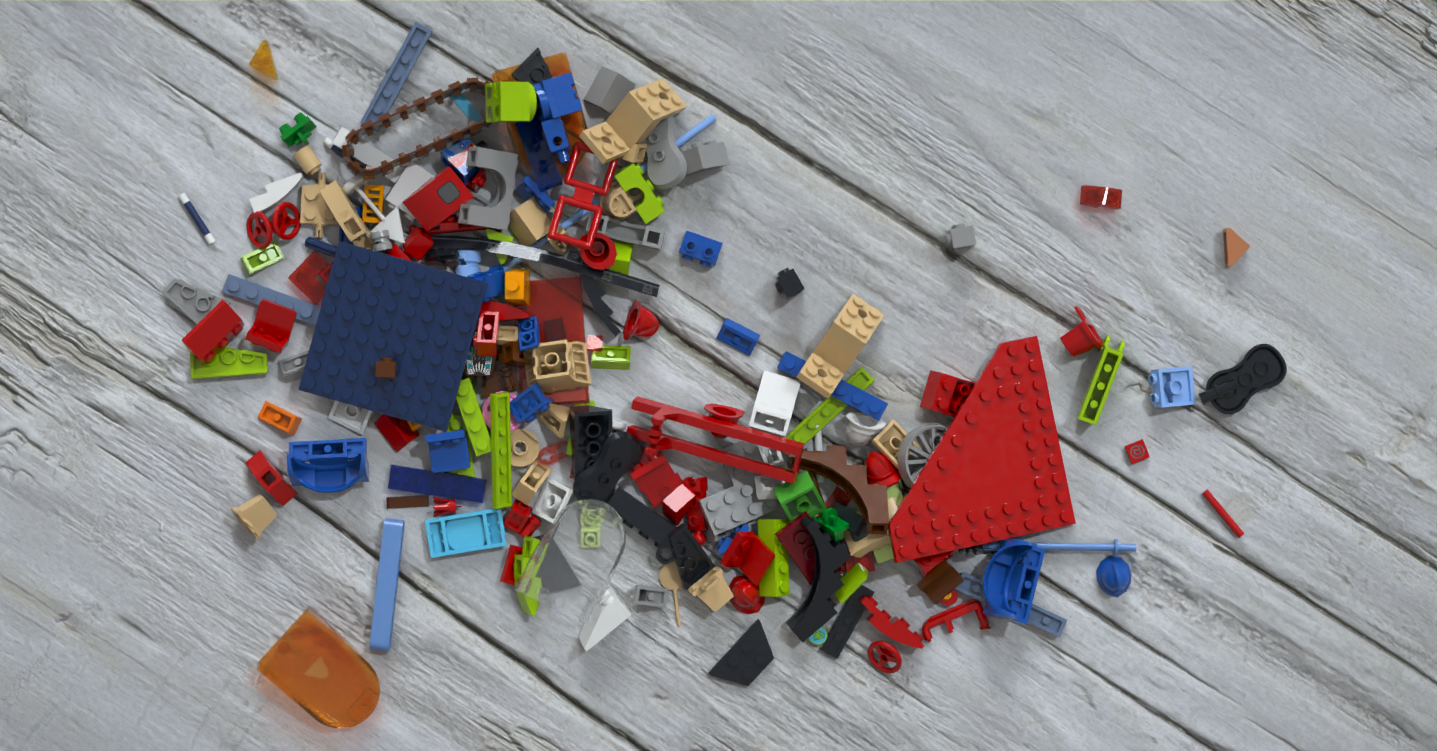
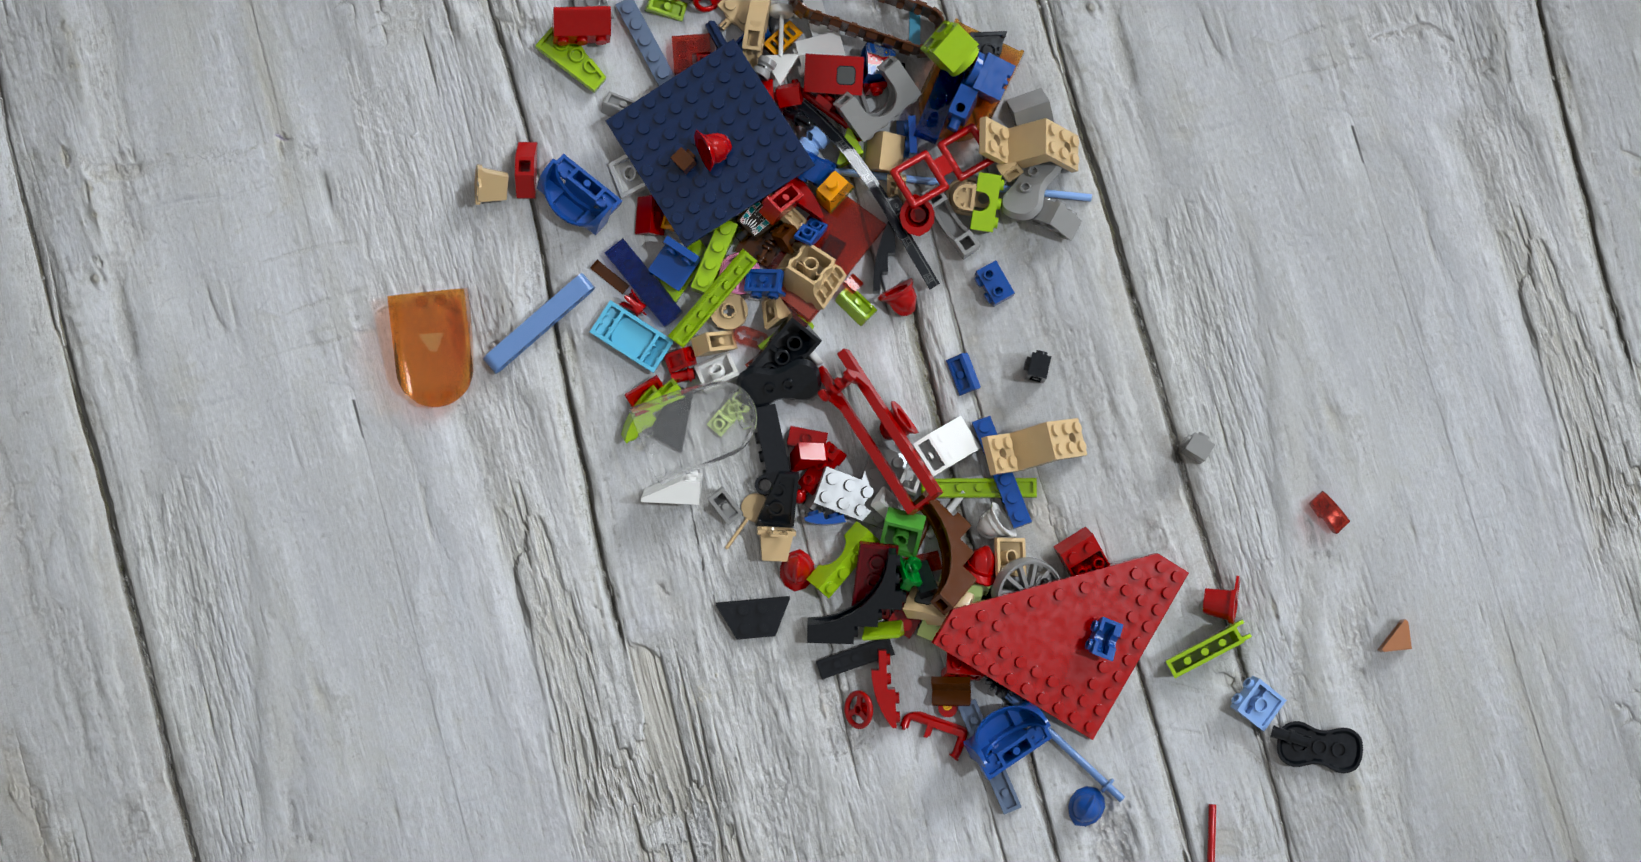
camera: 40 degrees right, 5 degrees down
(272, 326) = (628, 60): red bracket -> none
(279, 418) = (572, 133): orange slope -> none
(400, 340) = (712, 148): none -> red piece
(623, 257) = (930, 239): lime slope -> none
(651, 471) = (810, 413): red bracket -> none
(749, 555) = (825, 541): red bracket -> none
(819, 636) = (823, 650): tile -> none
(1018, 443) = (1104, 638): none -> blue cylinder
(1137, 451) = (1187, 727): red tile -> none

